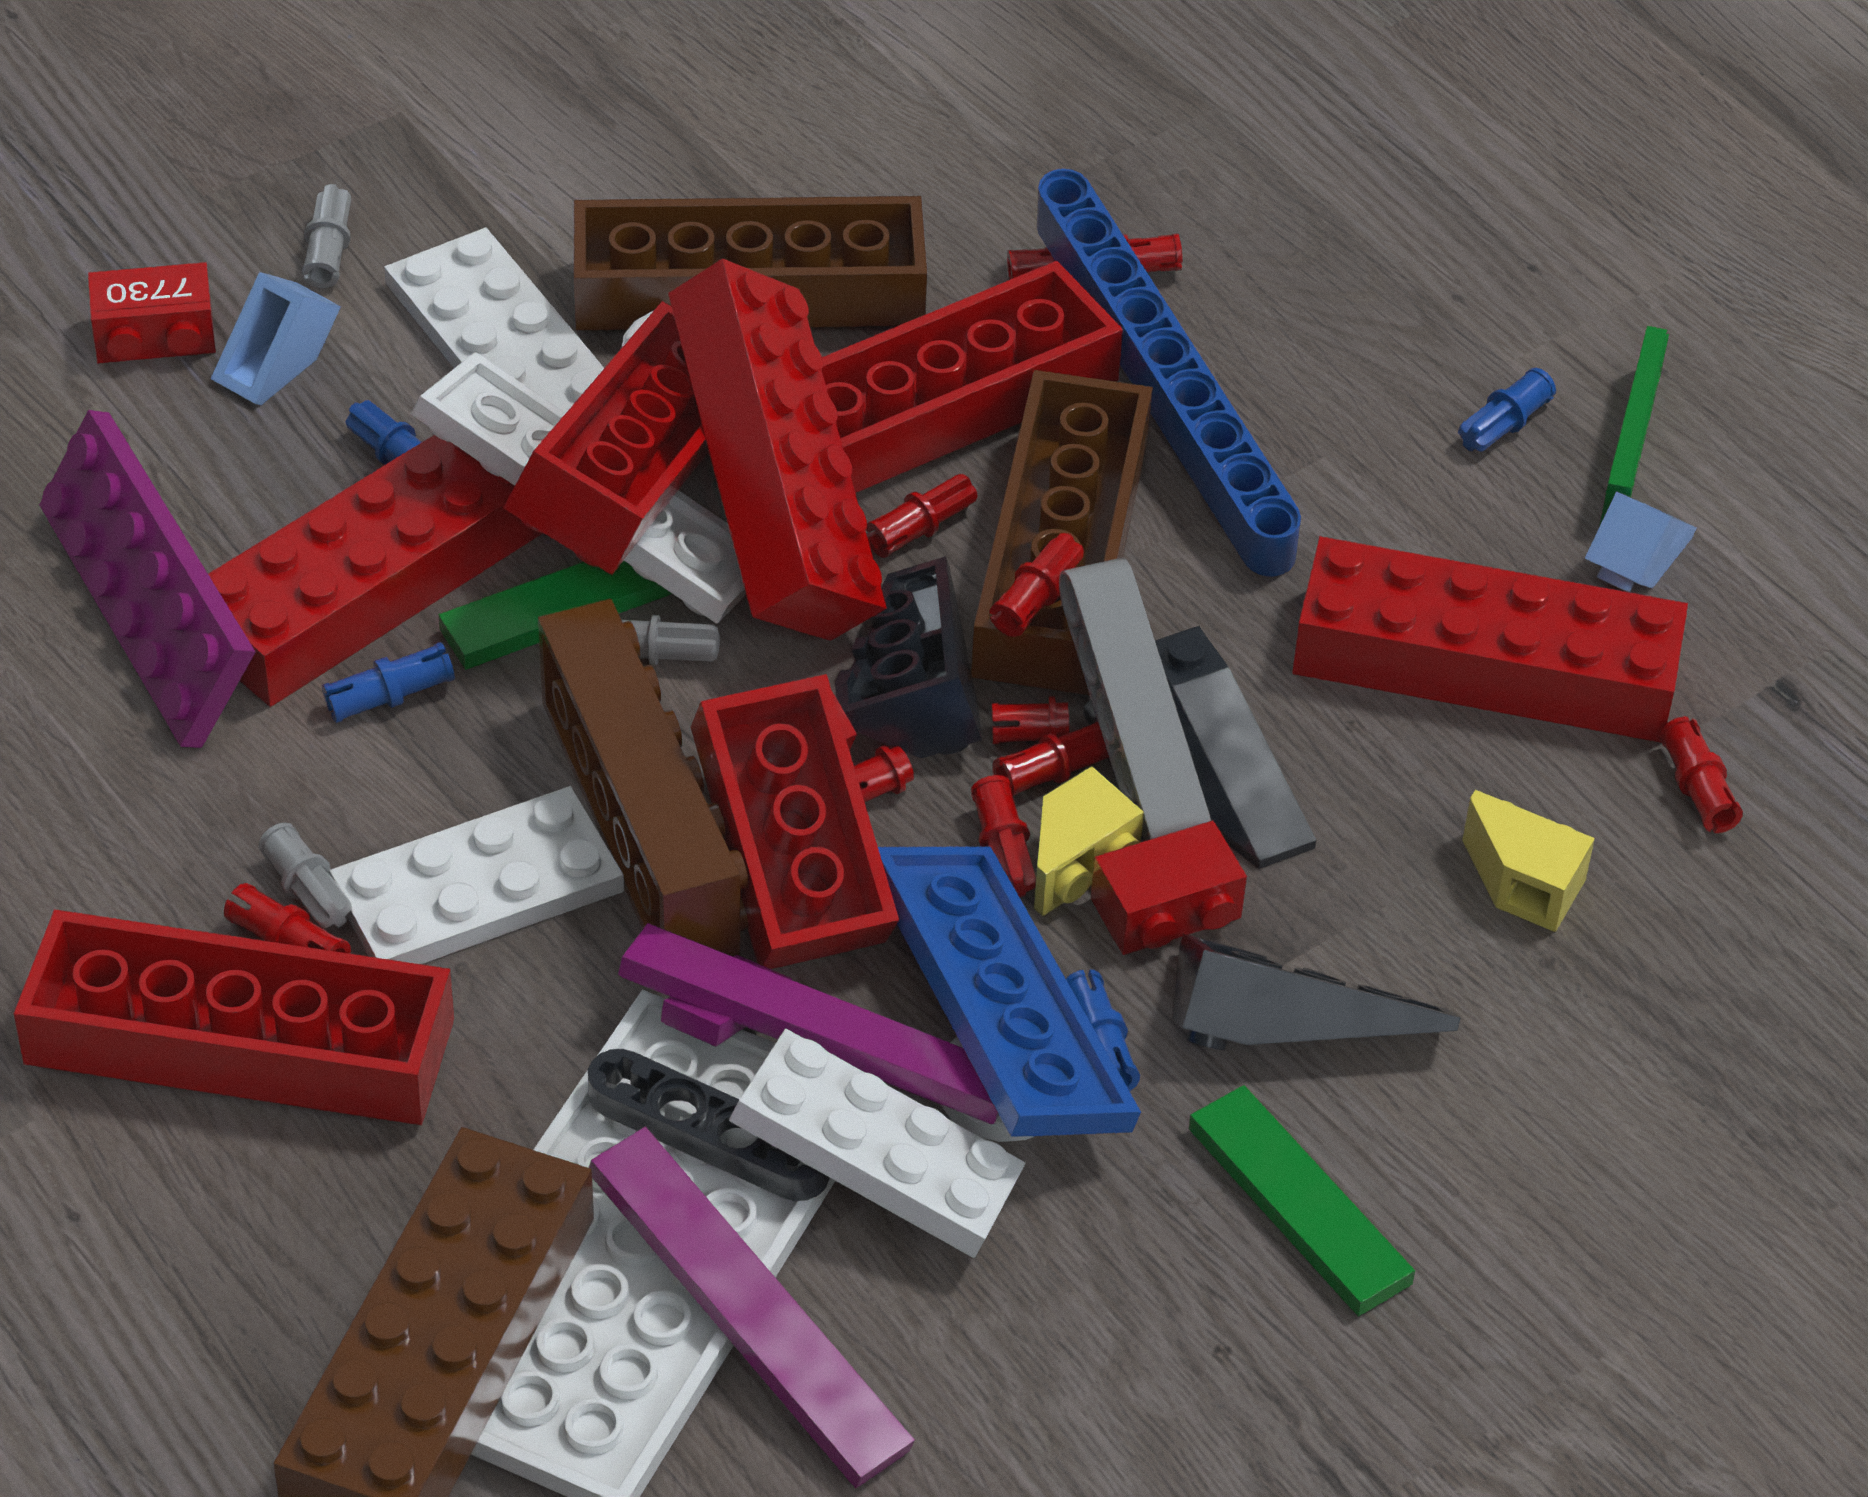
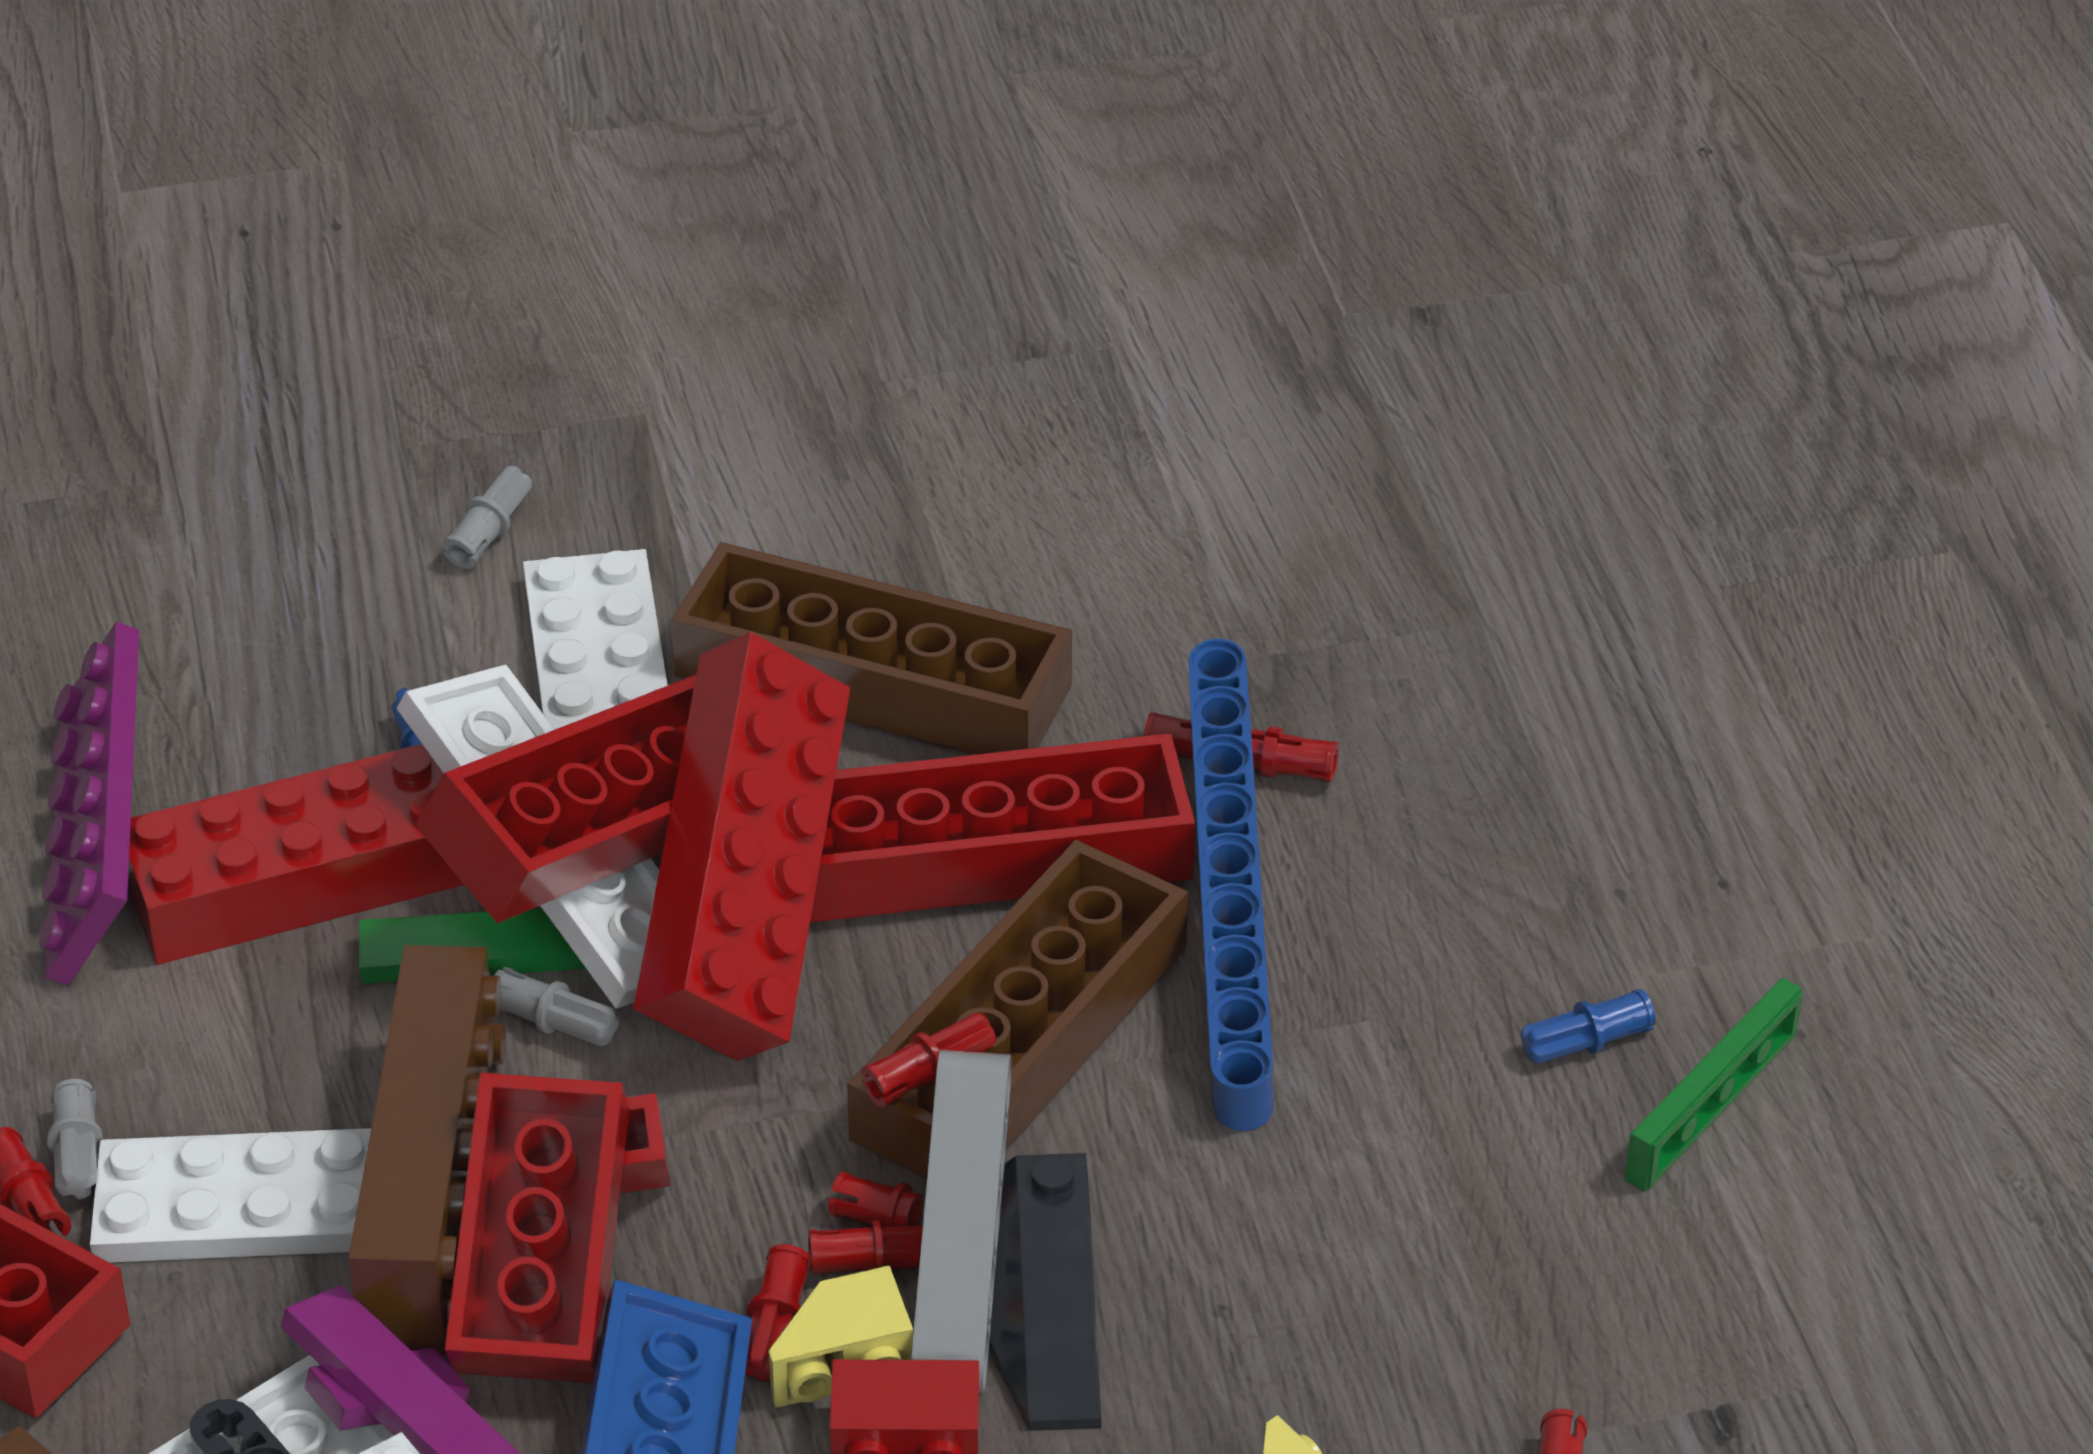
camera: 25 degrees right, 5 degrees down
(151, 312) = (272, 547): red brick -> none
(274, 338) = (372, 602): light blue slope -> none
(388, 682) = (270, 972): blue pin -> none
(884, 772) = (684, 1210): red pin -> none
(914, 668) = (785, 1120): black wedge -> none
(920, 515) = (898, 958): red axle -> none
(1490, 639) = (1410, 1263): red brick -> none
(1637, 543) = (1640, 1207): light blue slope -> none

